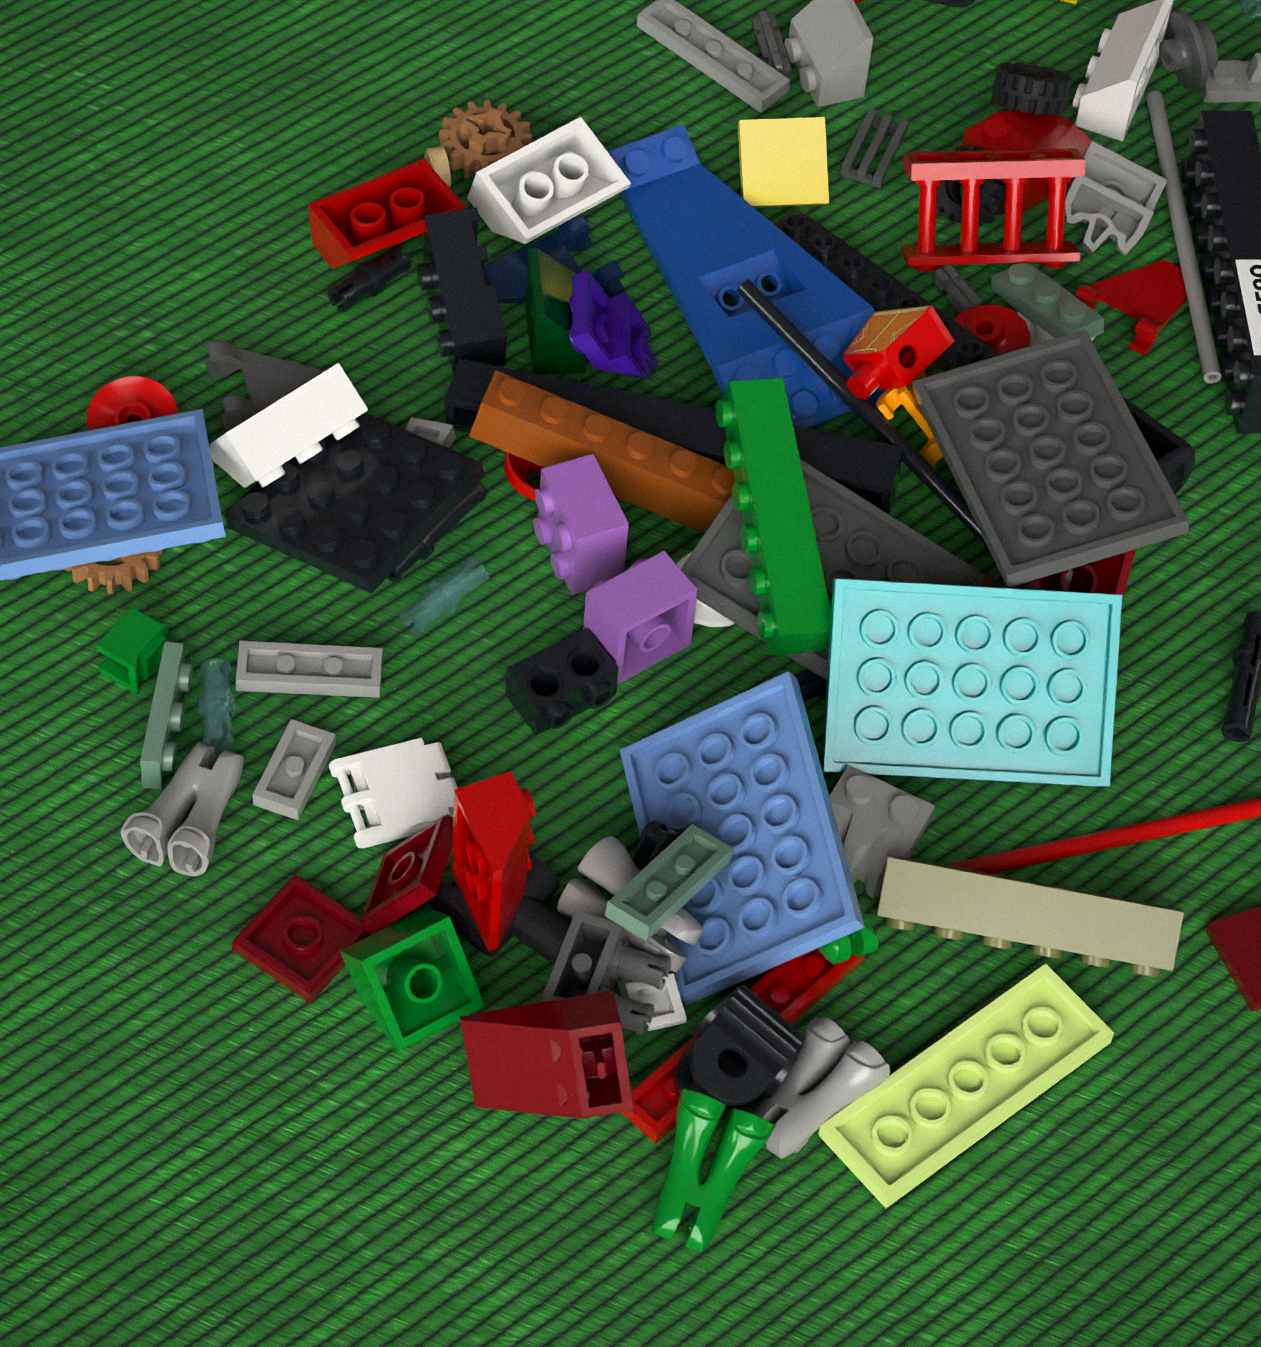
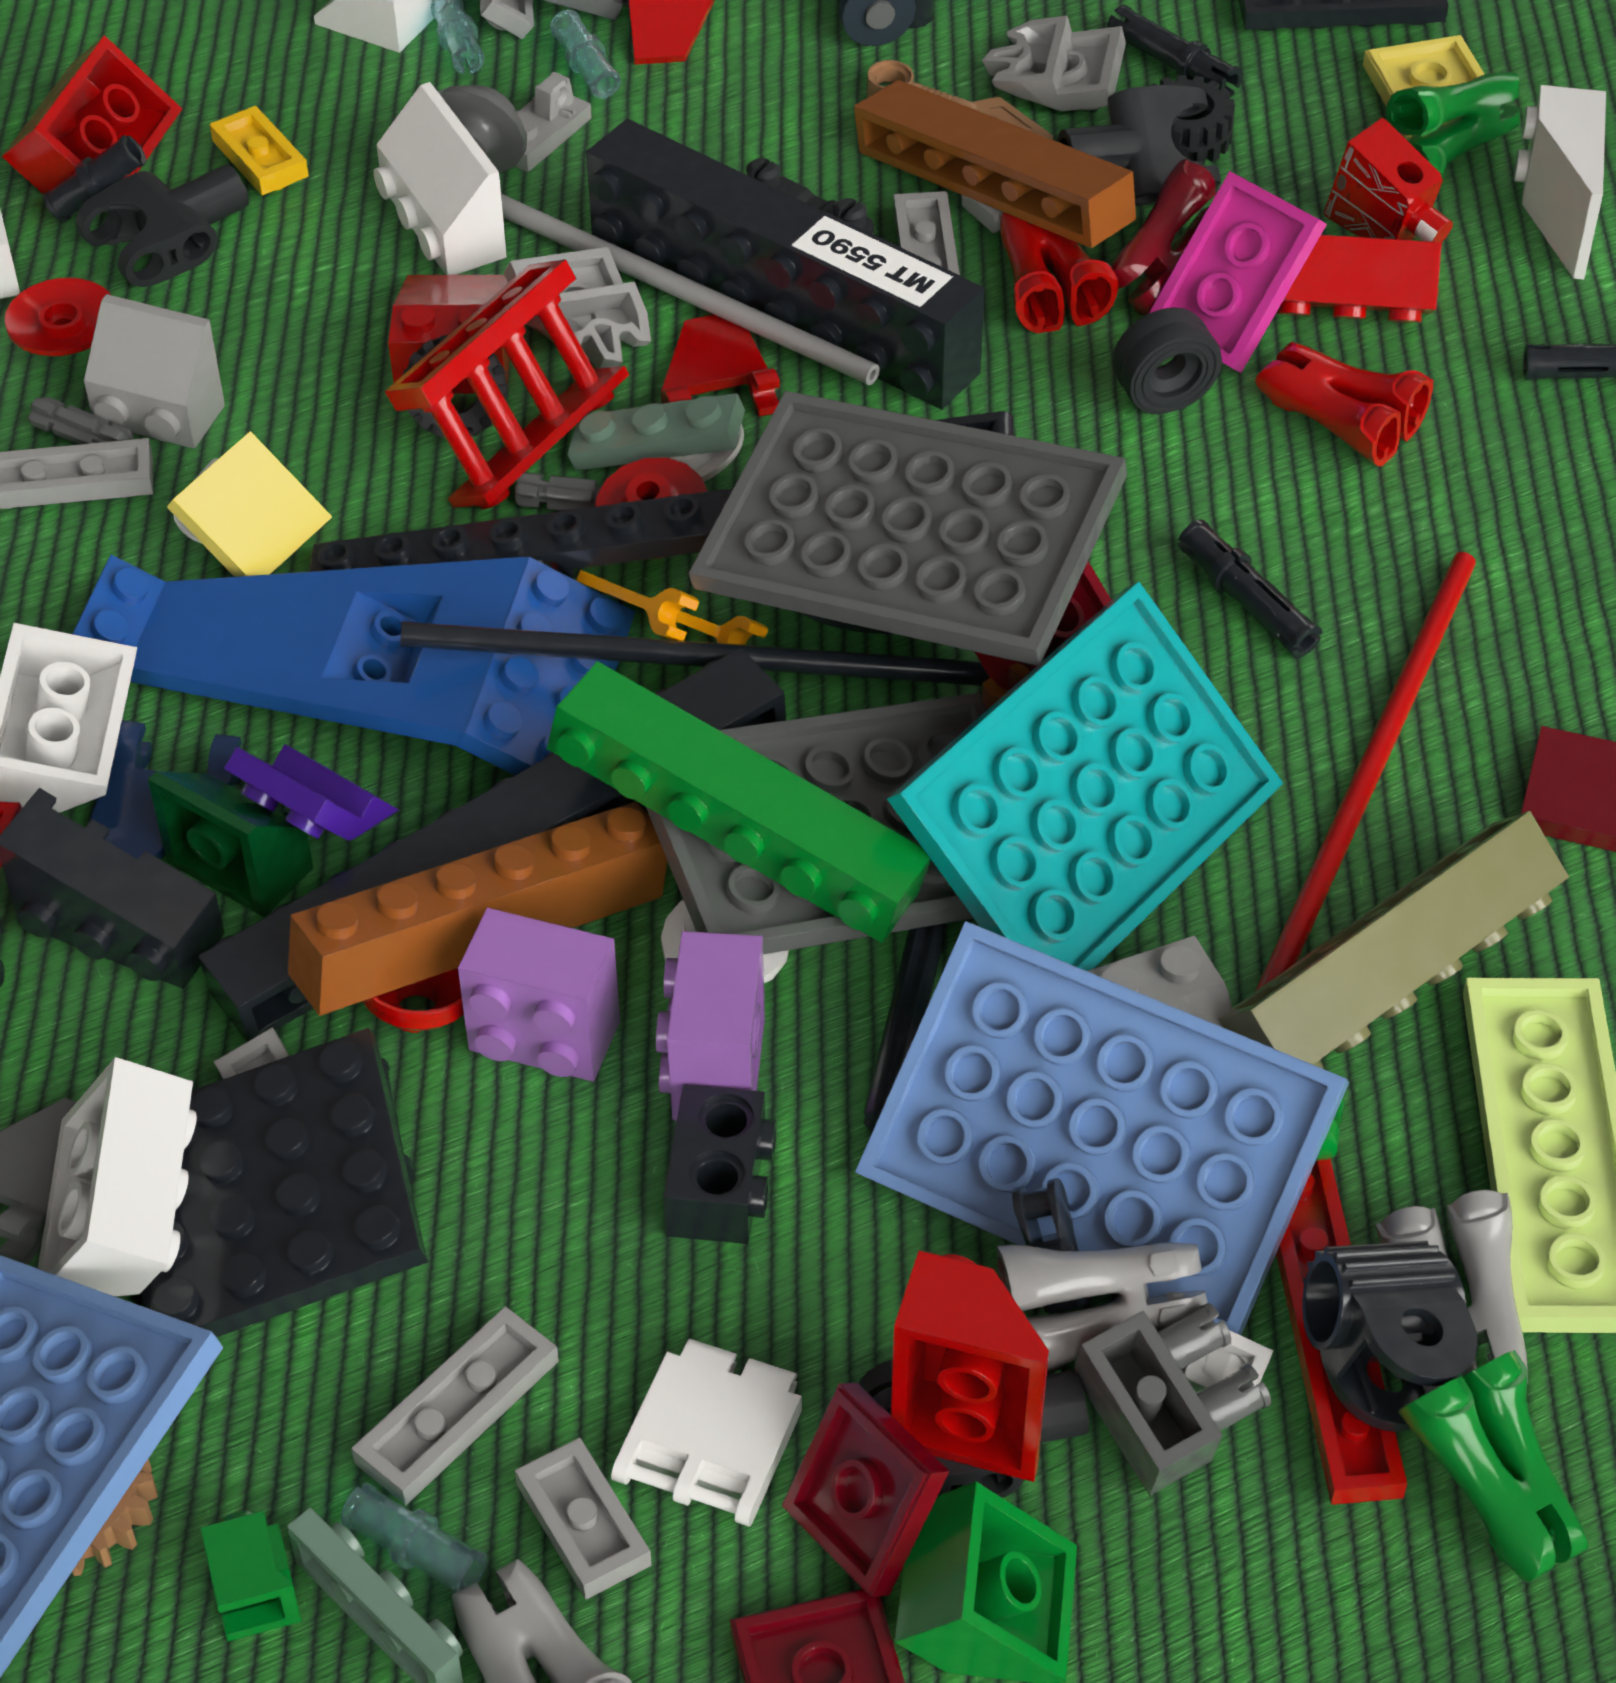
camera: 45 degrees left, 5 degrees down
(444, 596) = (486, 1199): clear light blue pin -> none
(550, 1057) = (1249, 1509): dark red slope -> none
(668, 882) = (1126, 1228): sand green plate -> none
(883, 126) = (290, 411): dark grey tile -> none
(895, 349) = (618, 565): red torso -> none
(1031, 88) = (385, 266): black tyre -> none

